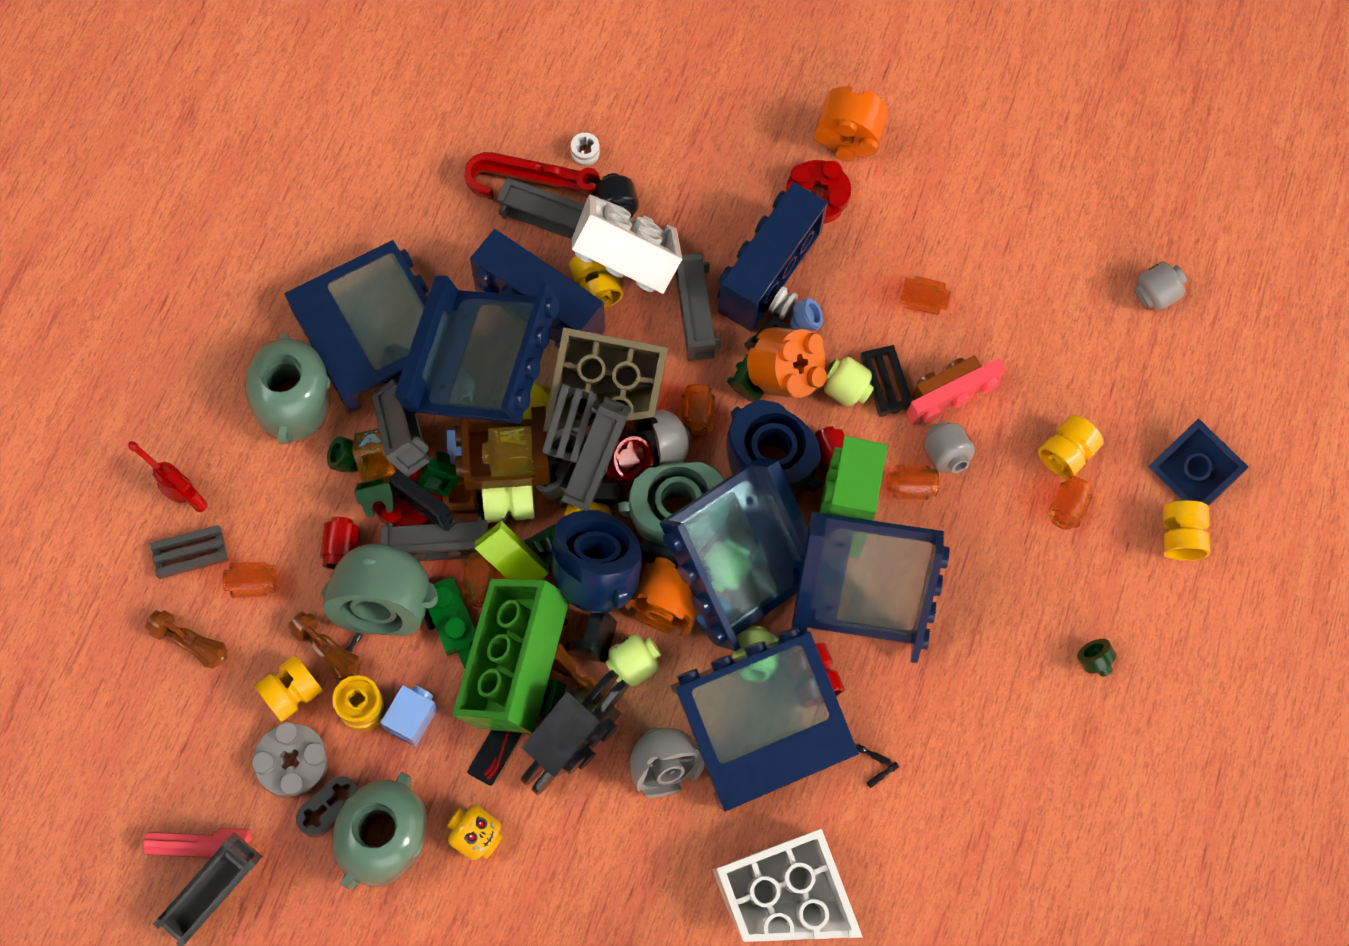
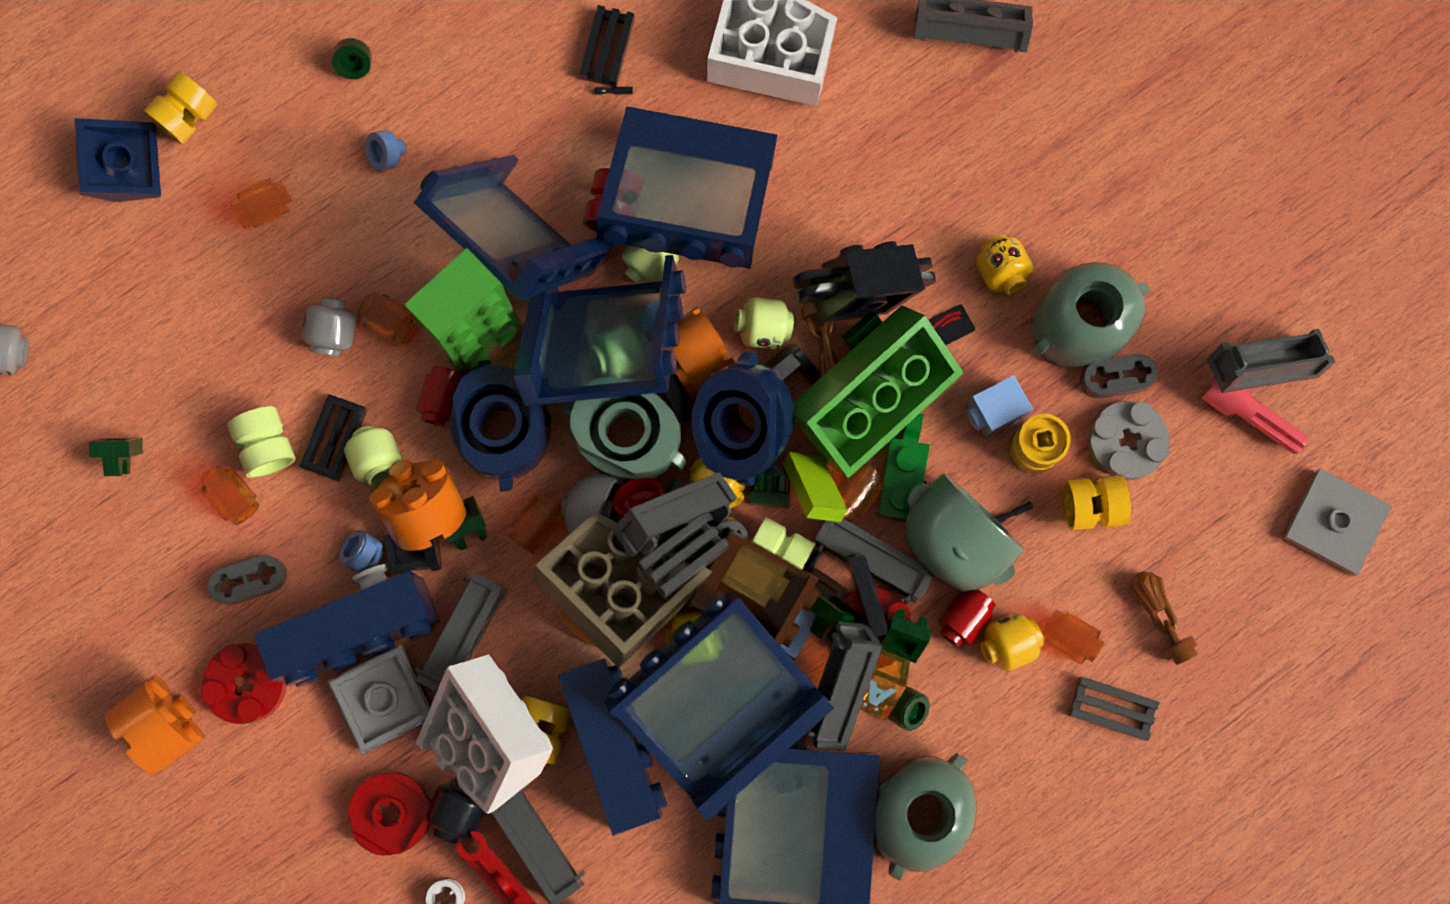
camera: 145 degrees left, 10 degrees up
(85, 804) = (1336, 522): none -> light grey plate
(172, 481) = (1095, 785): red piece -> none
(294, 547) = (1012, 642): none -> yellow head
(340, 661) = (1031, 497): dark orange piece -> none
(663, 761) = (798, 217): light grey cylinder -> none
(672, 161) = (367, 819): none -> red plate
(717, 233) = (381, 699): none -> light grey plate
(863, 249) = (250, 589): none -> dark grey beam
(874, 755) = (608, 110): black piece -> none
(930, 339) = (259, 436): none -> yellowish green wheel
(930, 807) = (614, 17): none -> black tile
(953, 371) = (294, 396): dark orange plate -> none
(956, 392) = (278, 375): coral plate -> none
(1015, 603) = (384, 150): none -> medium blue tile
(1024, 273) = (116, 453): none -> dark green tile
(1071, 446) = (212, 253): yellow wheel -> none

